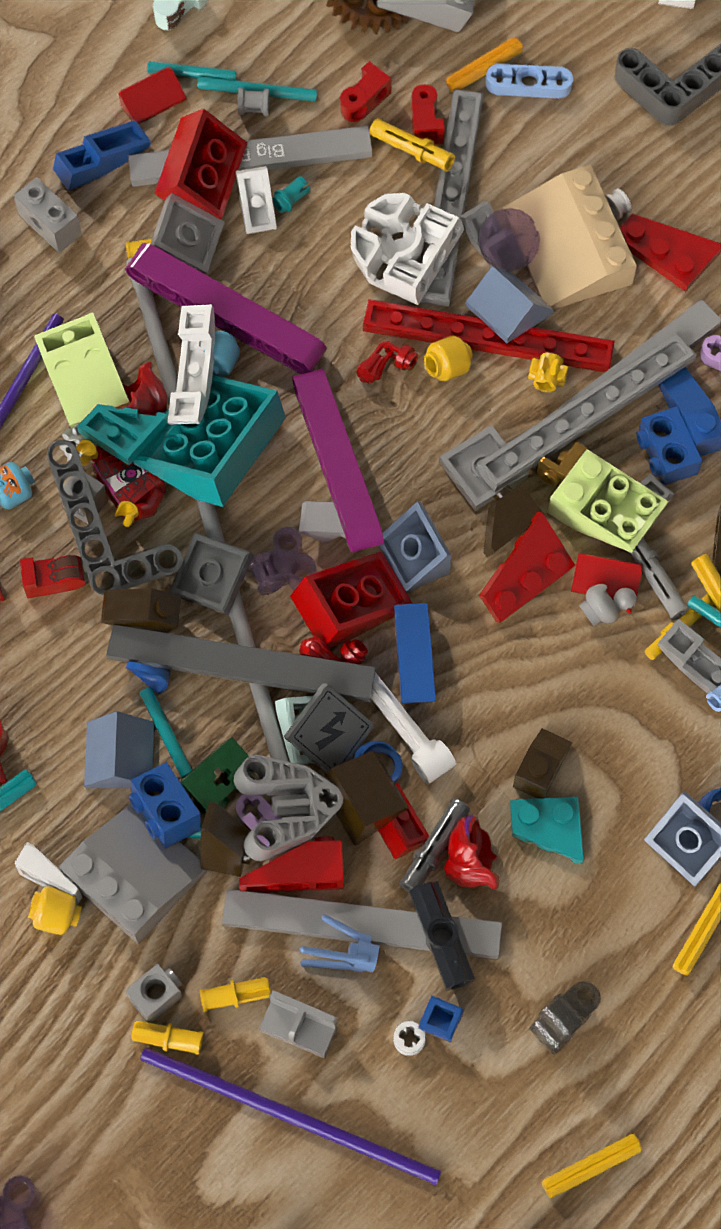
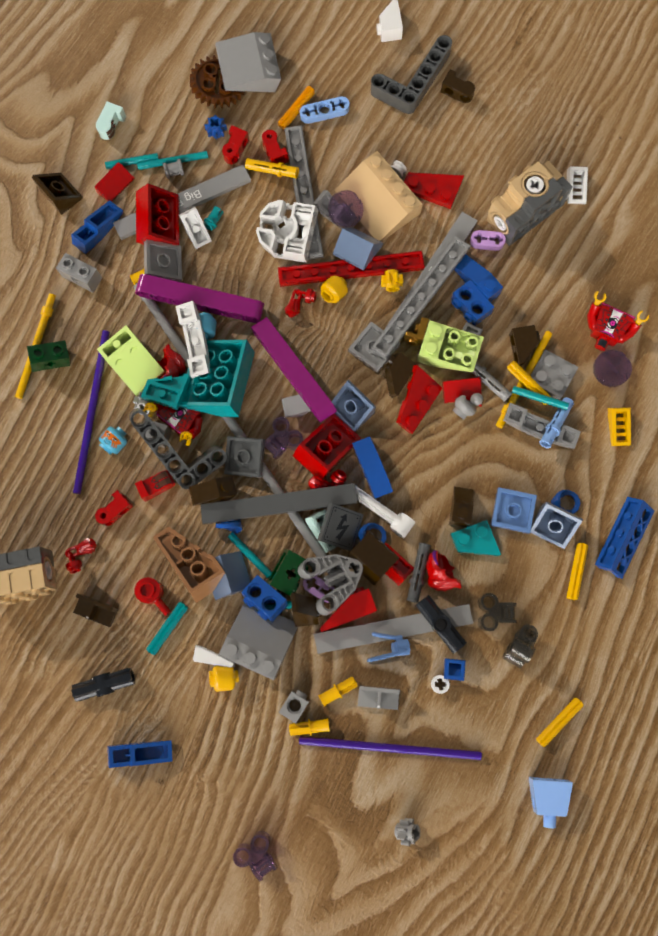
camera: 15 degrees left, 10 degrees up
(58, 83) = (57, 190): none -> dark brown slope
(68, 720) = (194, 567): none -> medium nougat wedge
(343, 58) = (215, 127): none -> blue gear
(543, 950) = (499, 612): none -> clear smoke piece
(628, 795) = (513, 510): none -> medium blue plate

